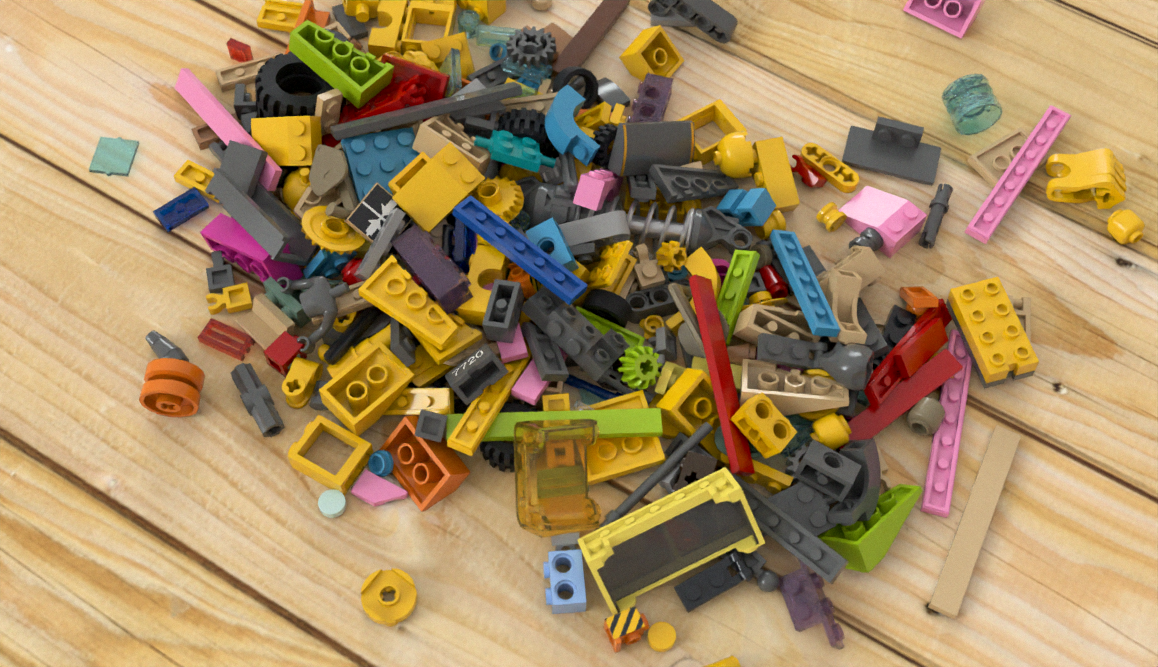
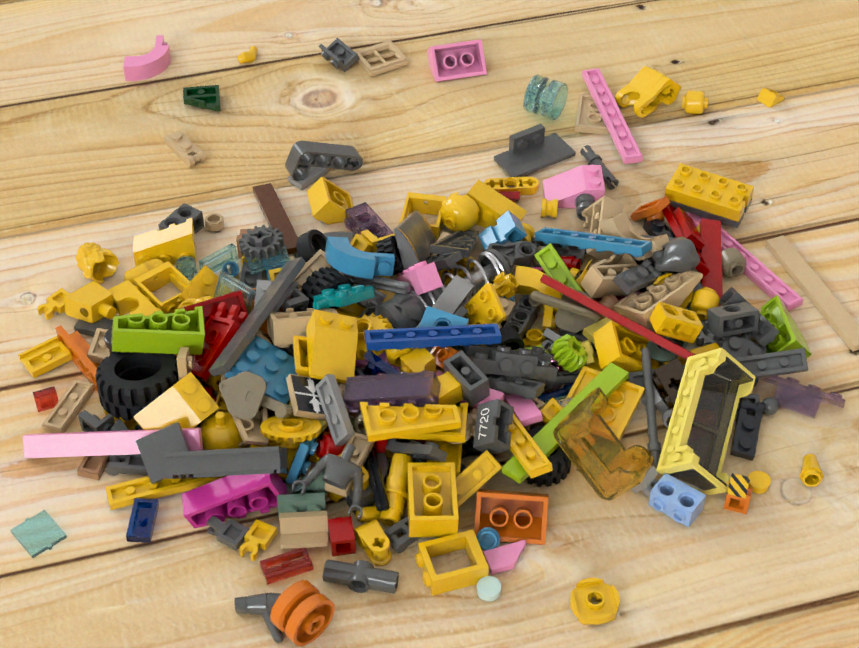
camera: 45 degrees left, 15 degrees down
(430, 425) = (502, 479): dark grey tile -> none

